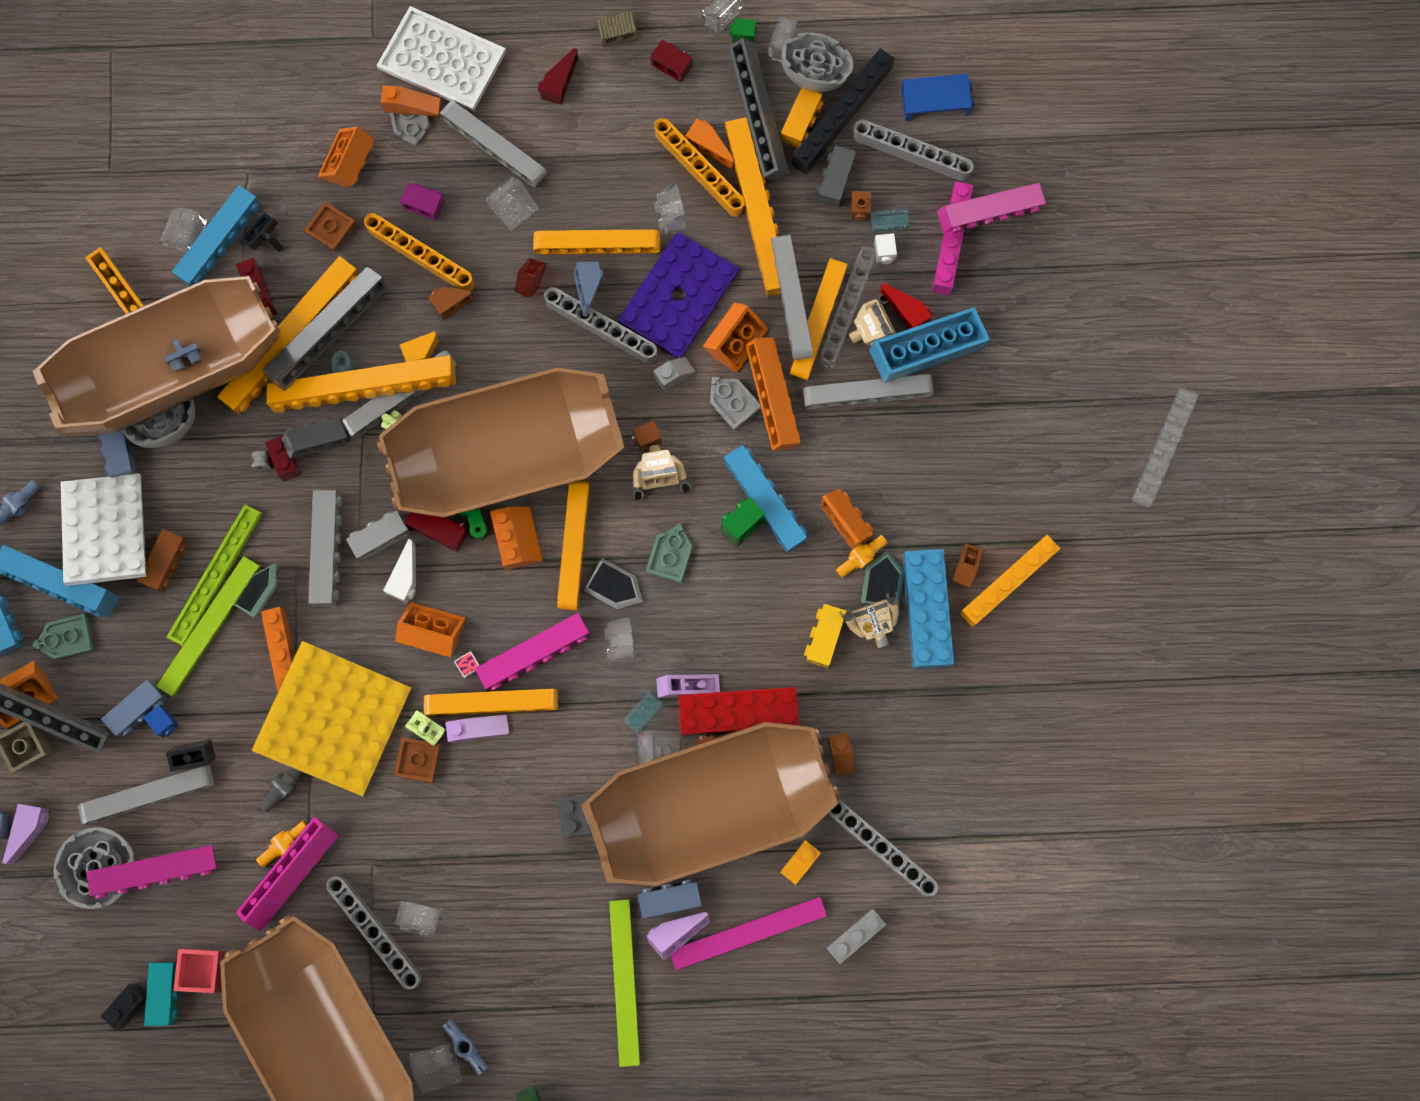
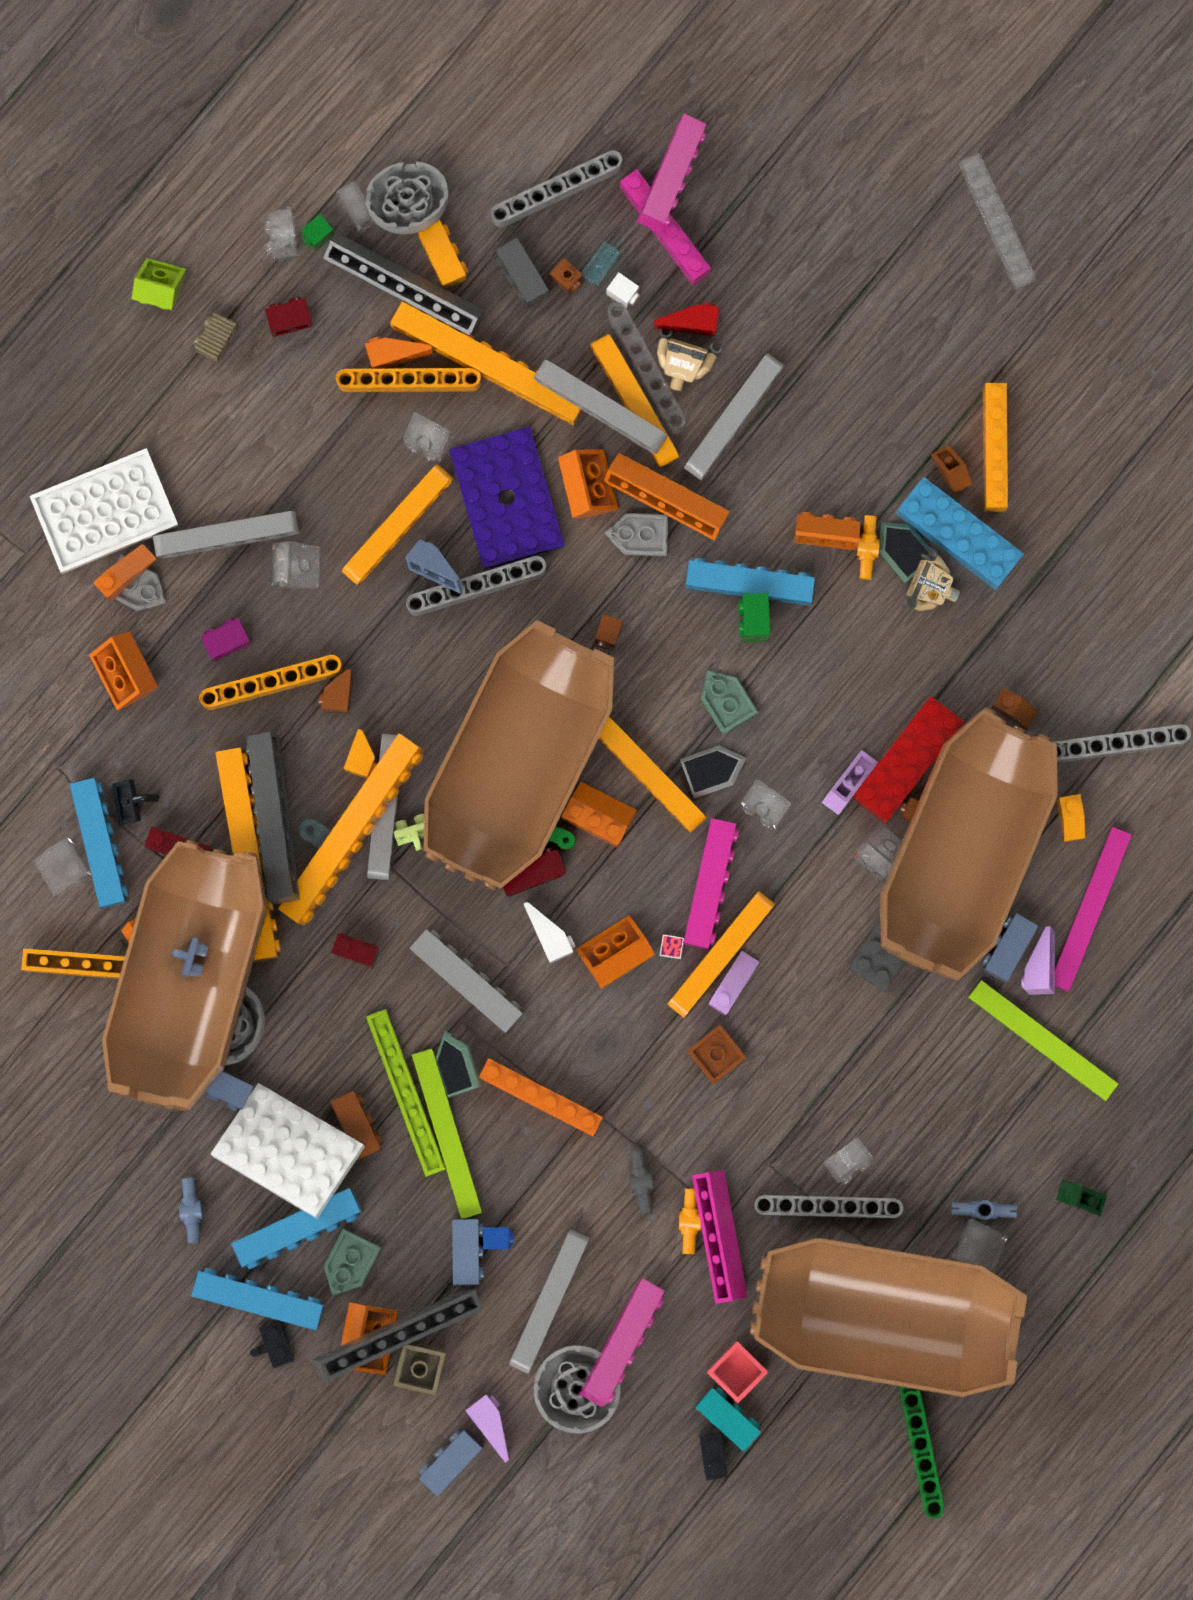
camera: 50 degrees left, 5 degrees up
(190, 755) = (549, 1235): black brick -> none
(261, 460) = (340, 971): light grey wheel -> none
(314, 437) = (363, 908): dark grey brick -> none
(329, 226) = (176, 738): dark orange plate -> none
(331, 718) = (622, 1093): yellow plate -> none
(377, 535) = (494, 927): light grey brick -> none
(418, 724) = (707, 1026): yellowish green hips -> none
(529, 277) = (379, 607): clear red slope -> none
(558, 78) = (217, 430): dark red slope -> none
(642, 712) = (839, 838): clear light blue plate -> none
(658, 470) = (648, 647): tan torso -> none
(673, 373) = (573, 562): light grey slope -> none
(824, 636) = (907, 635): yellow brick -> none
(842, 111) = (468, 215): black brick -> none
(855, 936) = (1167, 825): light grey brick -> none
(929, 344) = (742, 332): dark azure brick -> none
(936, 95) = (526, 125): blue panel -> none

